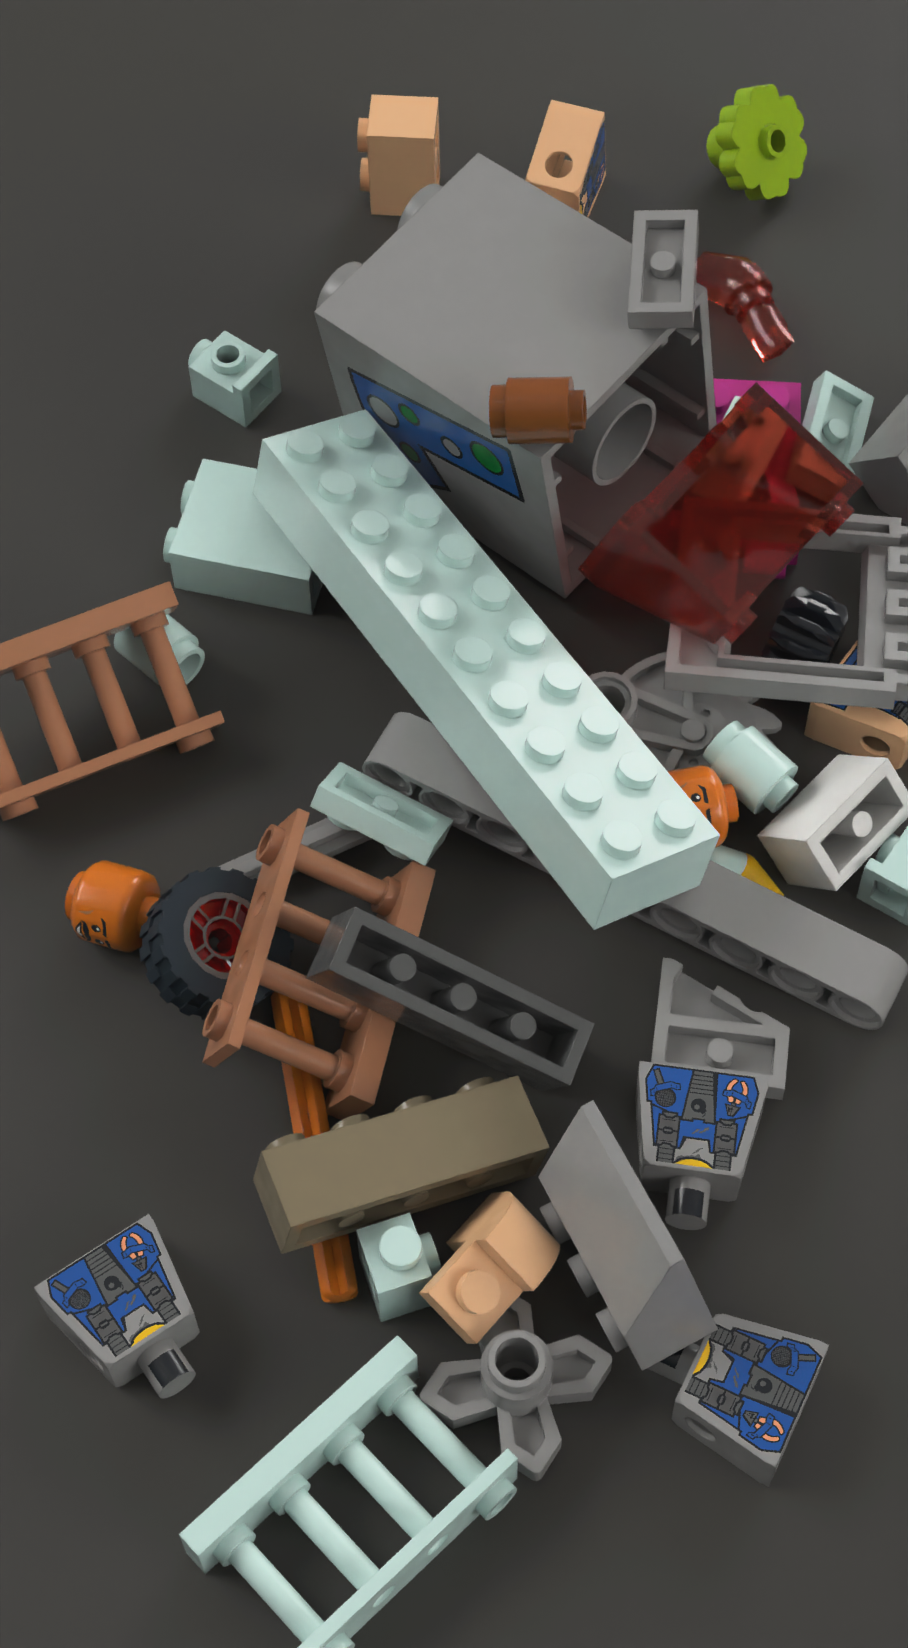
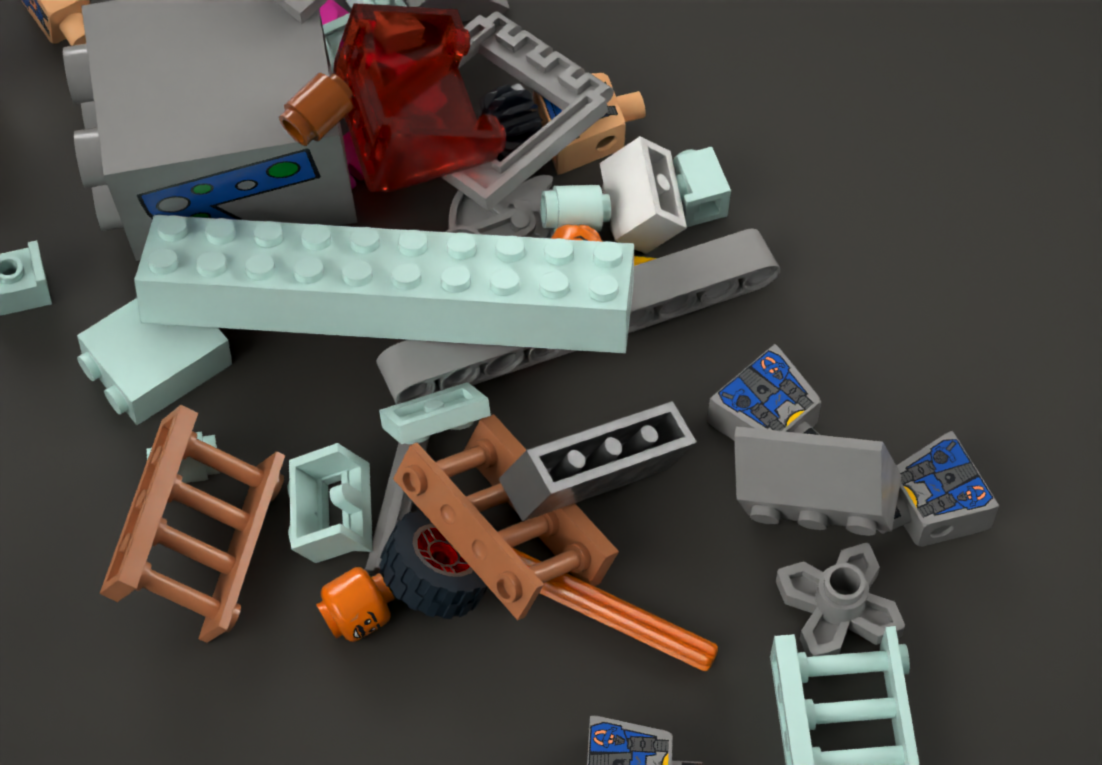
camera: 55 degrees left, 0 degrees up
(206, 790) = (309, 503): none -> light aqua window
(397, 1264) = (727, 603): light aqua brick -> none
(398, 1161) = (669, 564): dark tan brick -> none
(494, 1261) = (771, 555): light nougat brick -> none
(716, 1031) = (712, 354): light grey wing -> none

